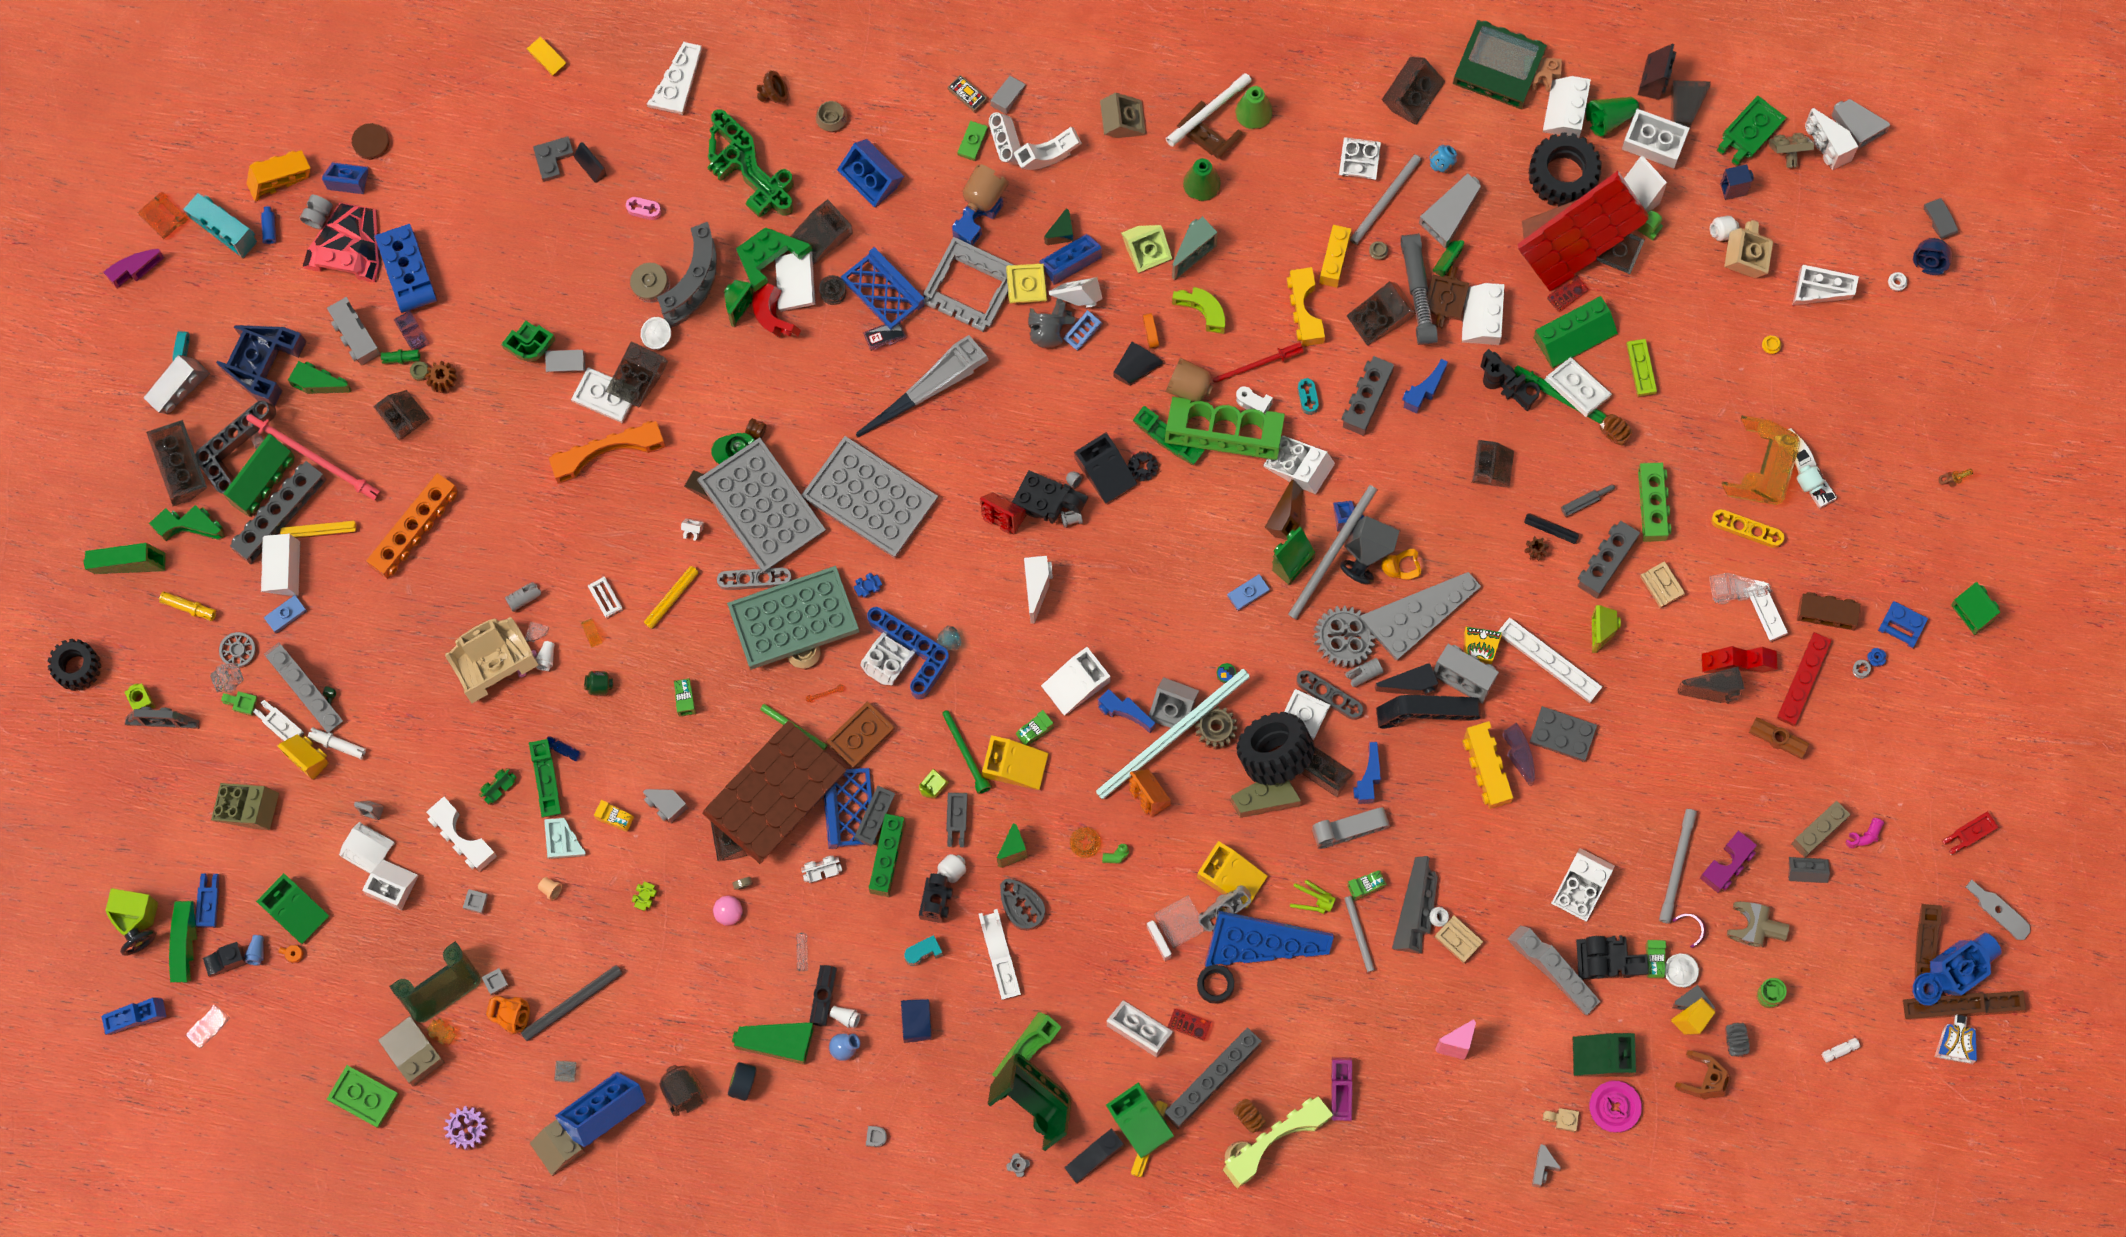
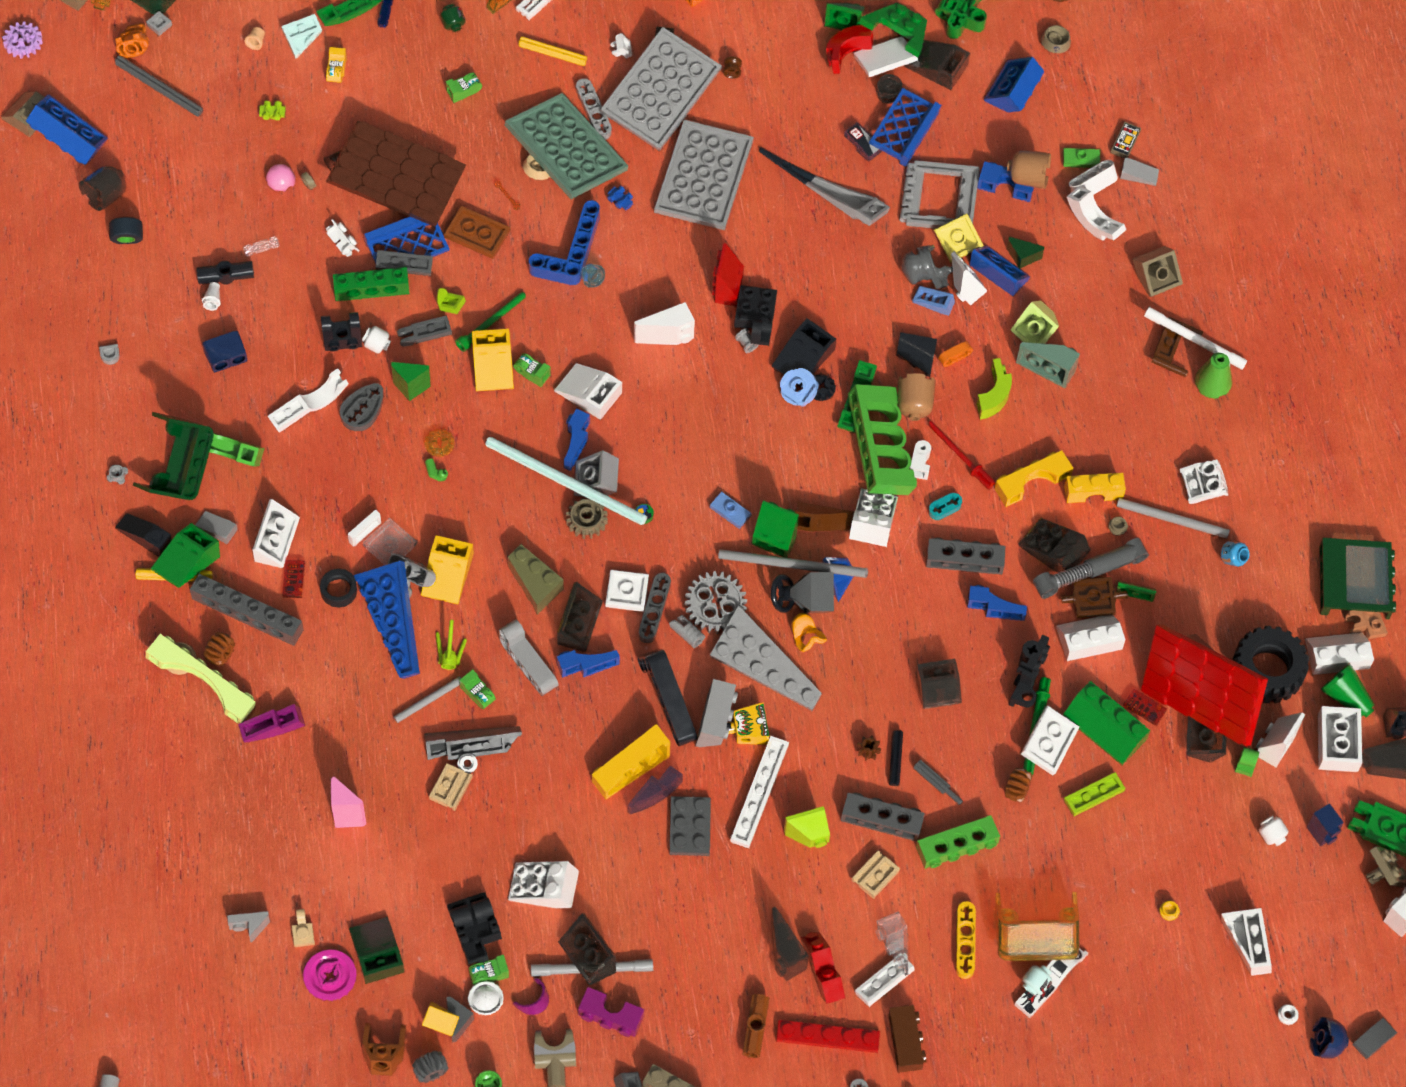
camera: 65 degrees right, 10 degrees down
(565, 1071) = (96, 99): clear light blue tile -> none
(667, 803) = (361, 102): light grey slope -> none
(729, 445) = (707, 46): green piece -> none
(778, 1041) = (172, 251): green slope -> none
(781, 719) = (467, 178): bright green bar -> none
(844, 1046) = (182, 301): medium blue piece -> none
(886, 660) = (555, 231): white slope -> none
(922, 950) = (293, 339): teal leg -> none
(1074, 479) = (785, 333): light grey hinge -> none
(1108, 1083) = (217, 527): none -> light grey slope
(1148, 791) = (501, 473): orange slope -> none
(1151, 487) = (795, 377): none -> light blue plate
(1201, 181) = (1123, 353): green cone -> none
(1283, 762) = (578, 564): black tyre -> none
(1412, 682) = (694, 676): black slope -> none
(1413, 89) = (1295, 510): clear smoke slope -> none
(1450, 210) = (1186, 577): light grey slope -> none
(1554, 967) = (446, 878): light grey arch -> none
(1666, 862) = (588, 950): none -> clear smoke slope
(1748, 251) = (1256, 856): tan hinge -> none

